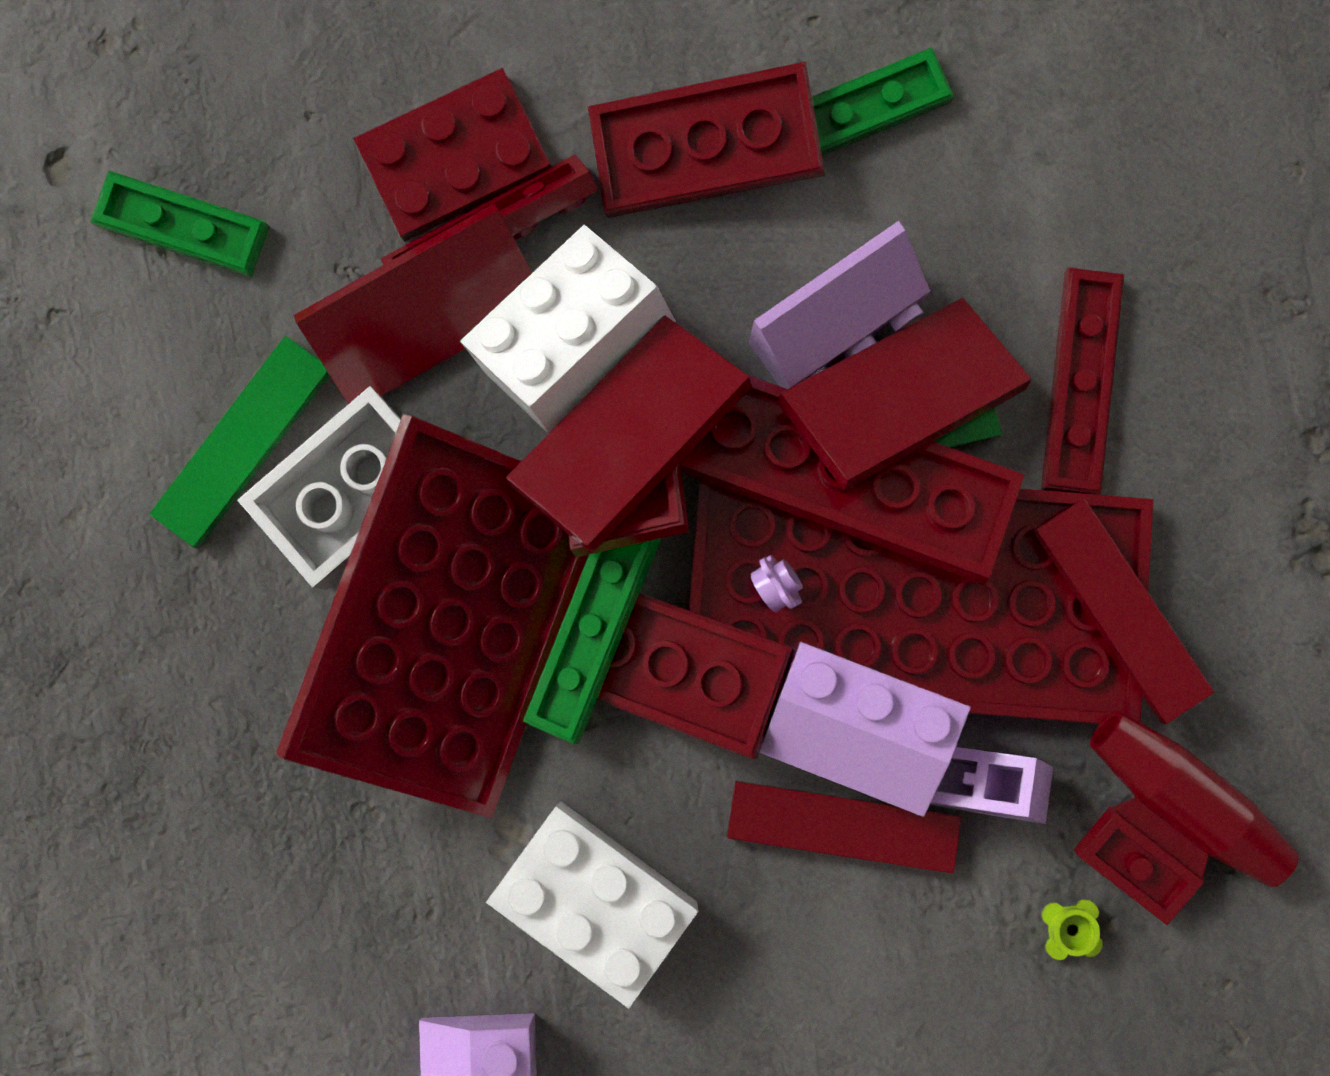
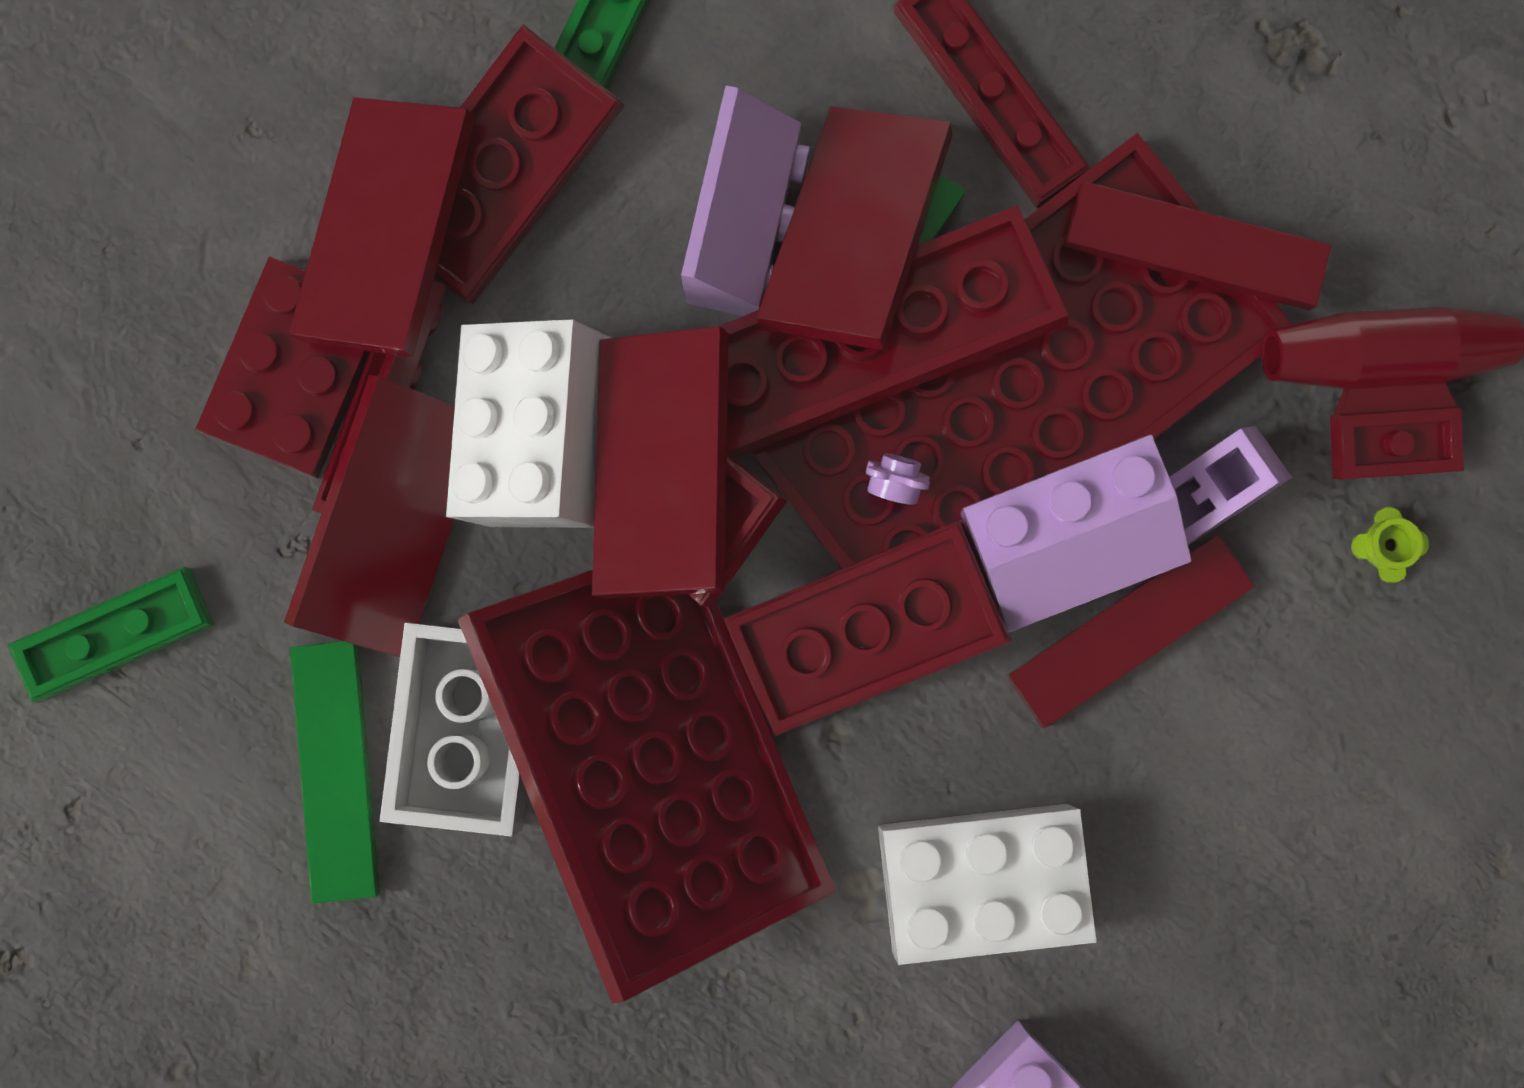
camera: 45 degrees left, 0 degrees up
(589, 640) = (782, 669): green tile -> none
(592, 113) = (382, 226): none -> dark red tile

